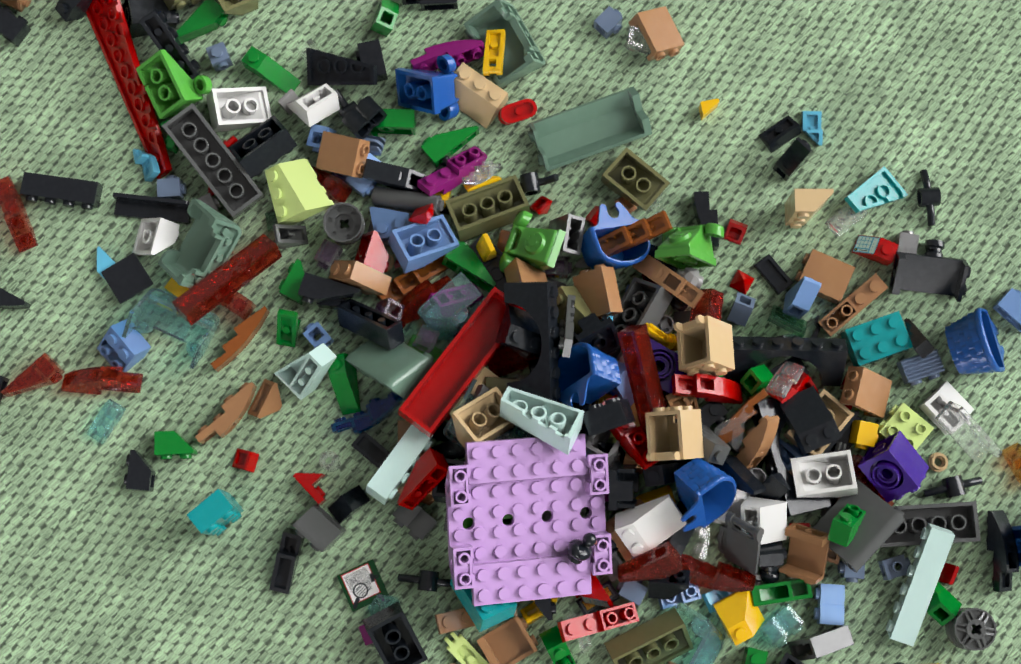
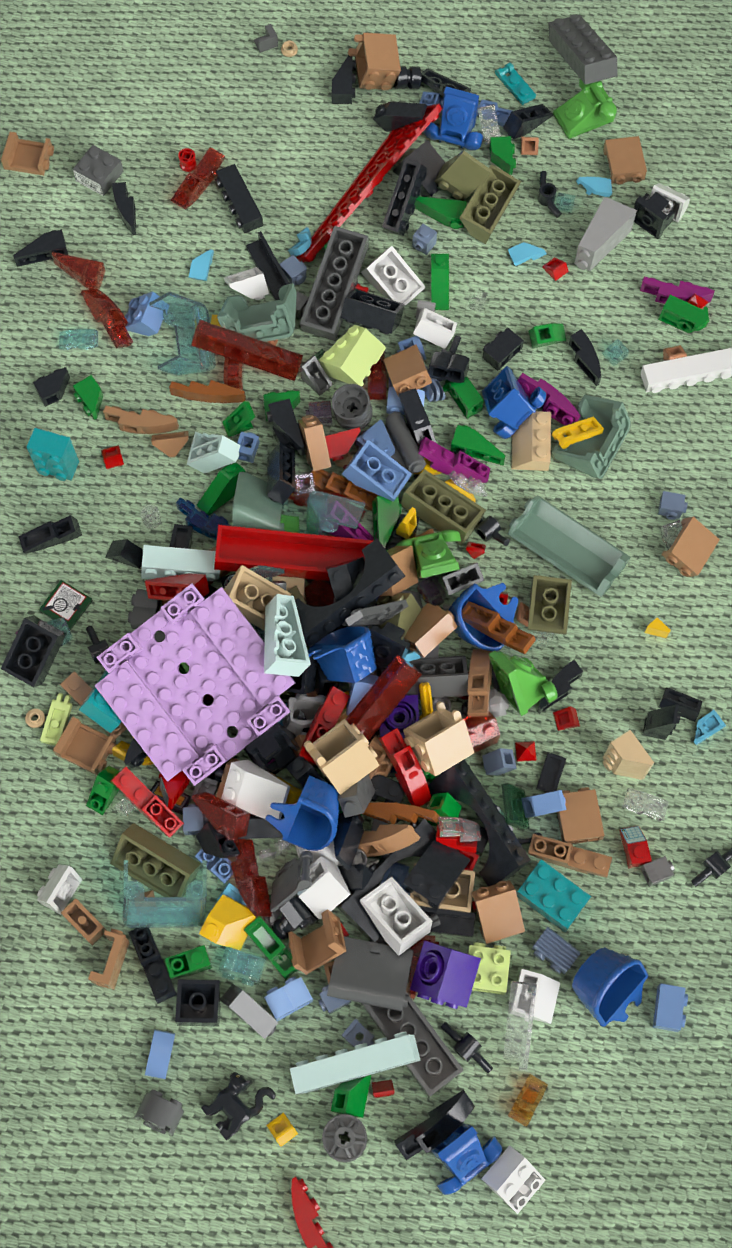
camera: 55 degrees right, 10 degrees down
(127, 278) = (201, 284): black piece -> none
(170, 86) = (372, 214): bright green piece -> none
(308, 481) = (122, 513): red slope -> none
(319, 528) = (89, 540): dark grey slope -> none
(338, 70) = (475, 326): black wing -> none
(423, 214) = (398, 457): red slope -> none
(426, 338) = (297, 520): brick -> none
(517, 111) = (540, 480): red brick -> none
(581, 549) = (196, 742): black animal -> none
(608, 417) = (322, 692): black brick -> none
(736, 425) = (388, 811): clear piece -> none
(846, 525) = (362, 957): green slope -> none
(863, 434) = (459, 934): yellow brick -> none
(876, 191) = (687, 814): wing -> none
(919, 341) = (577, 930): black slope -> none
(929, 275) = (644, 905): black panel -> none
(934, 247) = (671, 899): black wheel -> none
(944, 462) = (487, 1020): tan plate -> none

